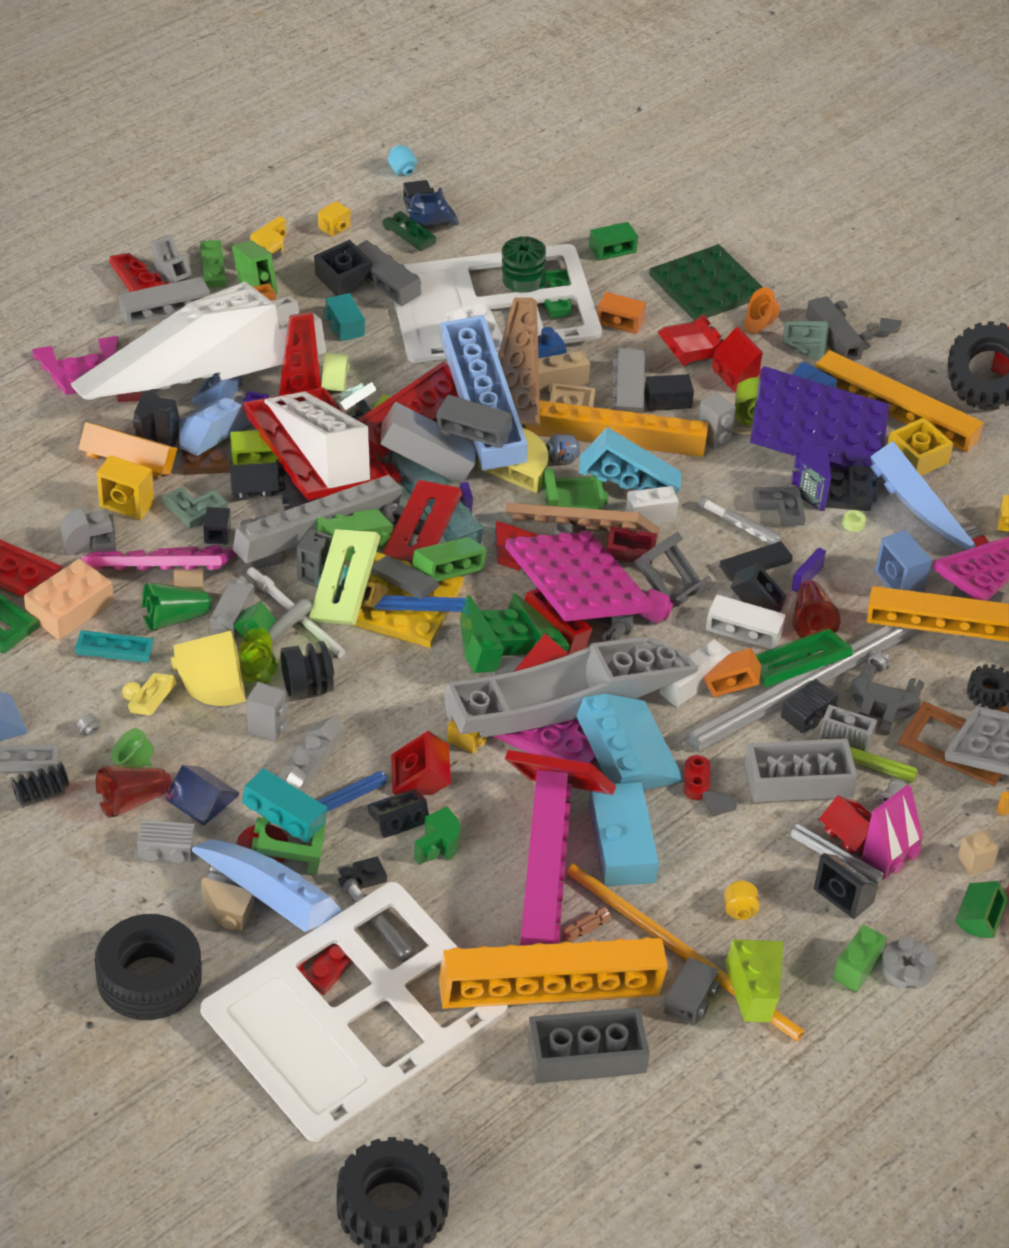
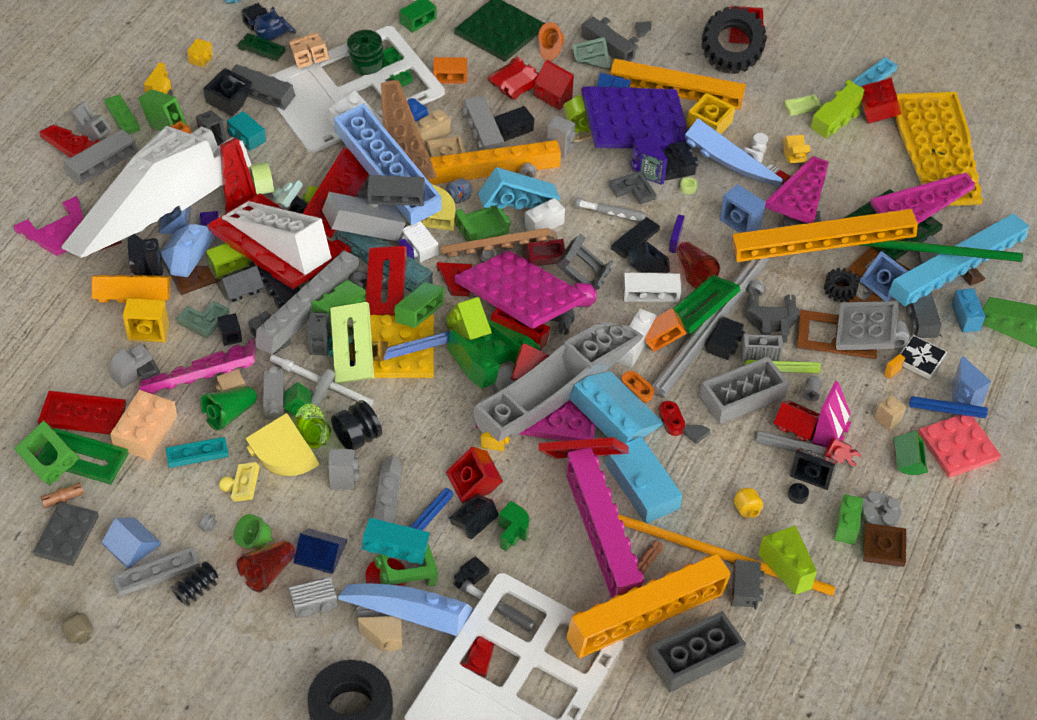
camera: 20 degrees left, 5 degrees up
(305, 296) = (213, 122): none -> dark grey torso
(404, 577) = (395, 328): dark grey tile -> none
(459, 242) = (308, 47): none -> light nougat hips
(487, 492) = (421, 241): none -> white brick
(494, 587) = (468, 319): none -> lime wedge
(659, 449) = (528, 170): none -> light grey bush
(671, 728) = (639, 386): none -> orange plate
(813, 910) = (798, 493): none -> black tile
(887, 876) = (840, 451): none -> plate
(892, 1002) = (884, 545): none -> reddish brown plate
(966, 501) = (758, 146): none -> white leg

